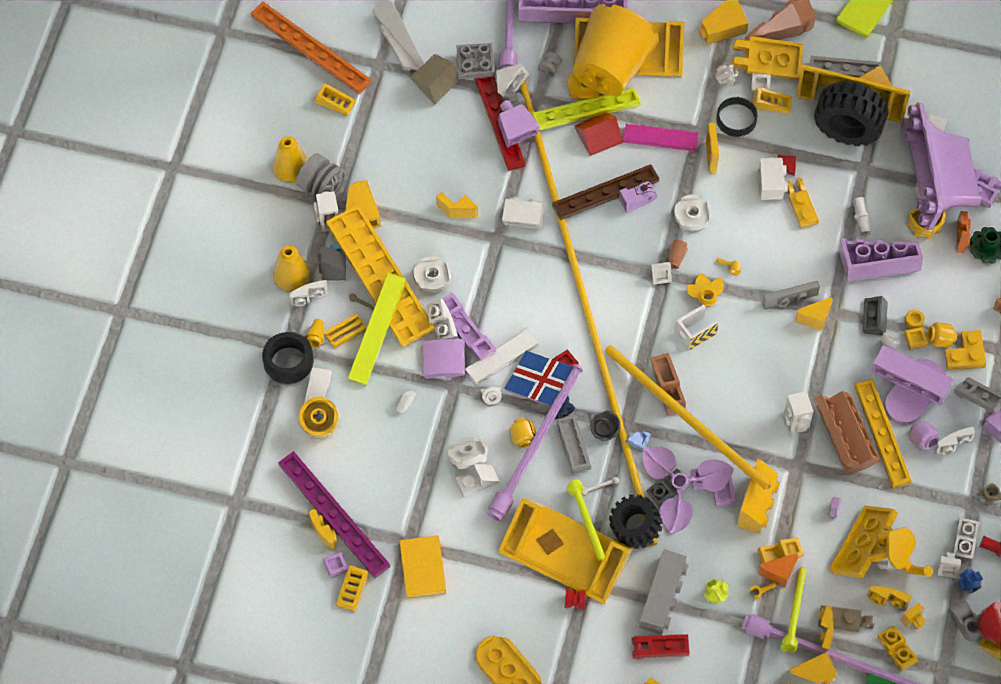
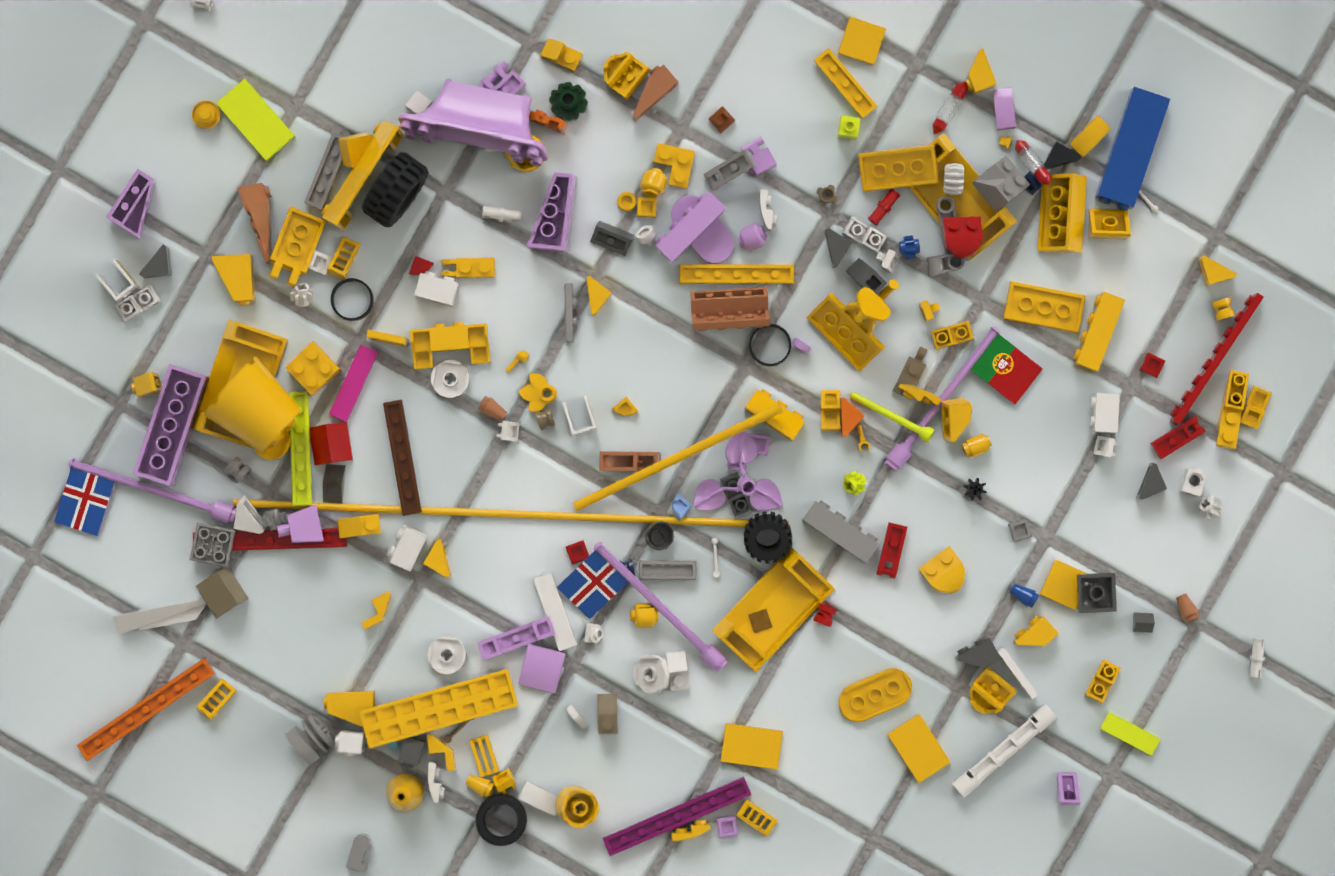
camera: 80 degrees left, 25 degrees up
(224, 247) = (357, 853): none -> light grey leg
(288, 159) = (285, 758): yellow cone -> none
(326, 351) = (504, 780): none -> yellow tile
(344, 286) = (437, 746): none -> yellow slope
(377, 329) = (496, 726): neon yellow tile -> none
(415, 425) = (607, 713): none -> dark tan slope
(441, 317) = (504, 659): white slope -> none
(521, 243) = (437, 559): none -> yellow slope
(531, 171) = (359, 526): none -> yellow slope
(562, 143) = (333, 483): none -> clear smoke slope
(576, 489) = (716, 582): neon yellow piece -> none
(637, 196) = (416, 427): lavender leg -> none
(662, 99) = (313, 368): none -> yellow brick
(683, 299) = (545, 418): none -> dark tan wheel
(718, 368) = (625, 408): none -> yellow tile
(729, 199) = (450, 339): none -> yellow bracket
(798, 412) = (700, 349): white brick -> none
(824, 461) = (774, 364): none -> black tyre
(881, 595) = (900, 332): yellow slope -> none
(924, 548) = (865, 276): none -> dark grey slope
(943, 514) = (837, 246): none -> dark grey slope

